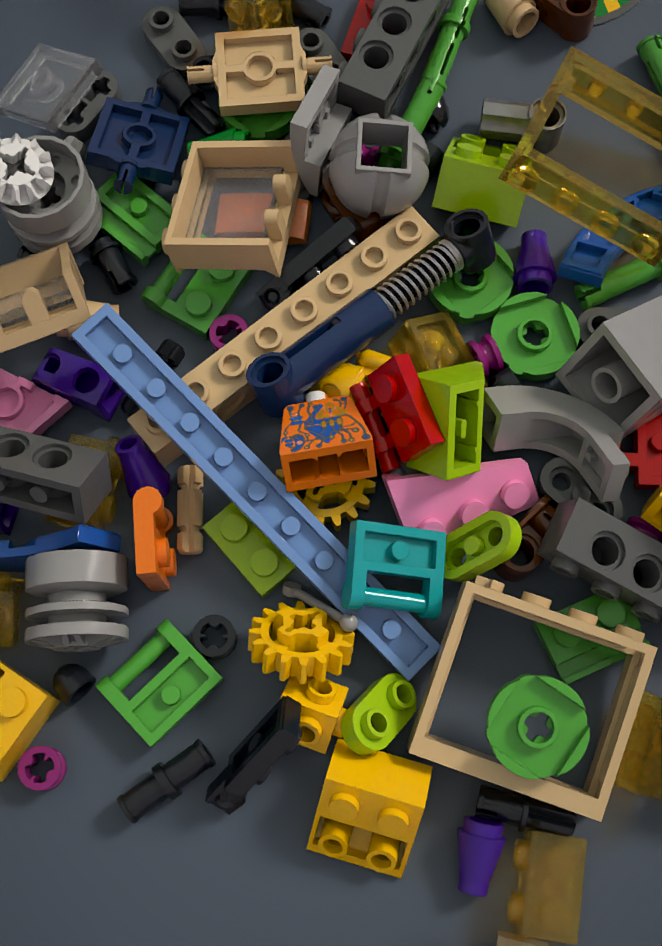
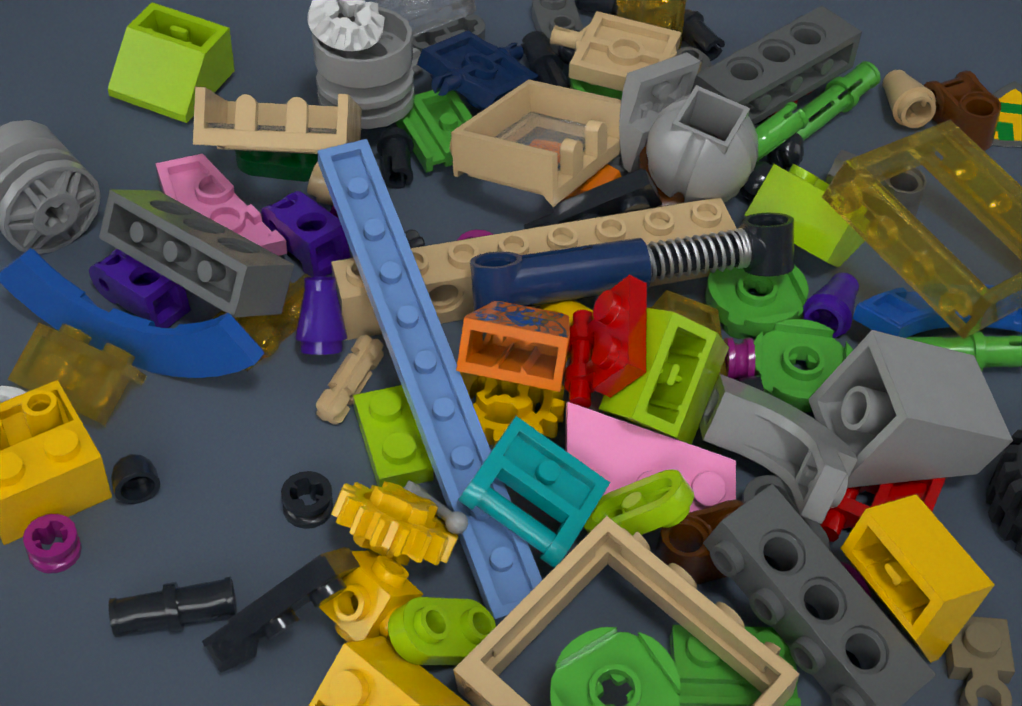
camera: 20 degrees right, 25 degrees down
(76, 595) = (185, 392): light grey wheel -> none
(152, 524) = (293, 373): orange plate -> none
(169, 694) = (226, 527): bright green plate -> none
(202, 301) = (486, 208): bright green plate -> none

